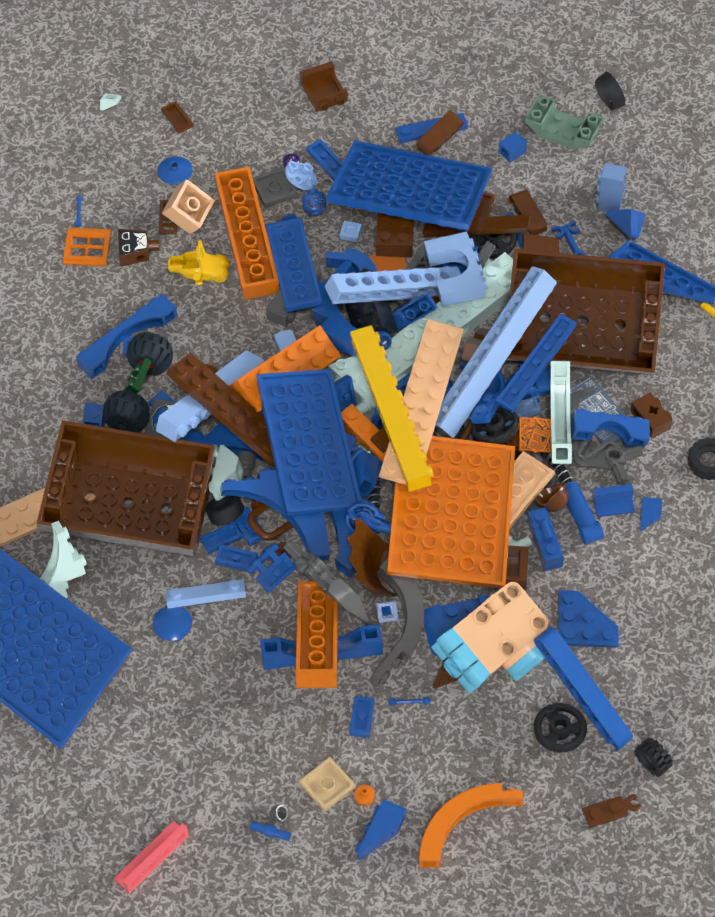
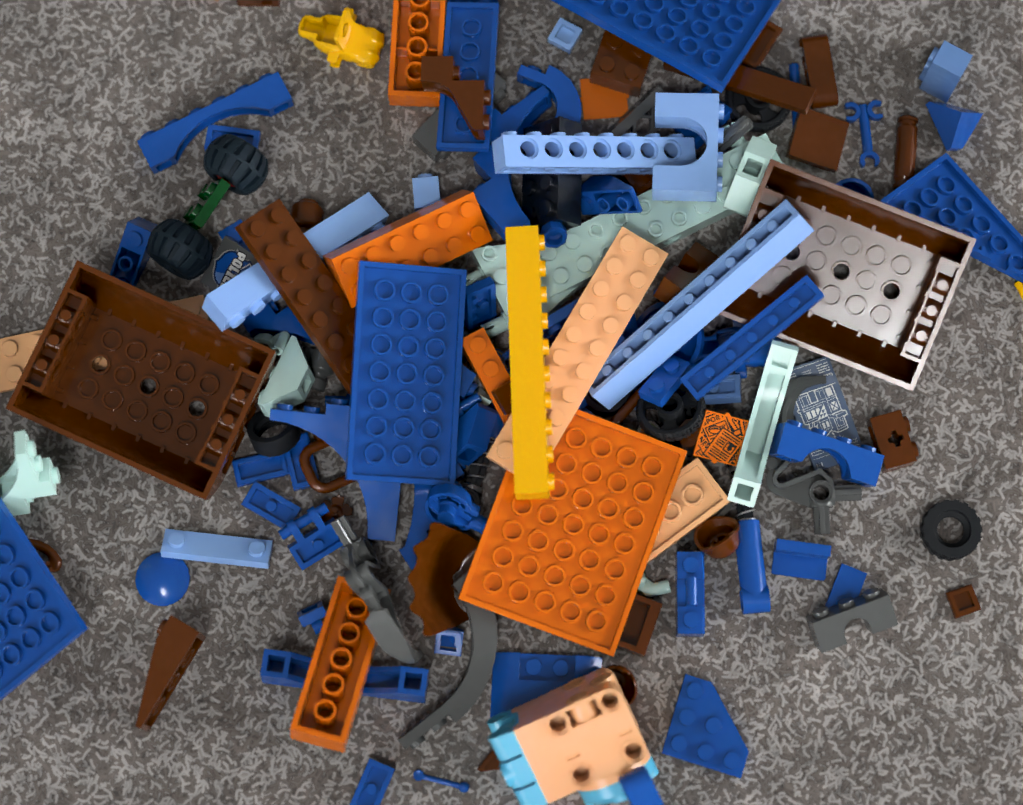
camera: 15 degrees right, 20 degrees up
(197, 658) = (170, 659): none -> reddish brown slope
(287, 618) = (312, 615): none -> blue tile
(296, 270) = (470, 96): none -> reddish brown arch
(502, 276) = (749, 176): none -> light aqua slope
(600, 240) = (905, 149): none -> reddish brown axle
(647, 535) = (829, 624): none -> dark grey arch

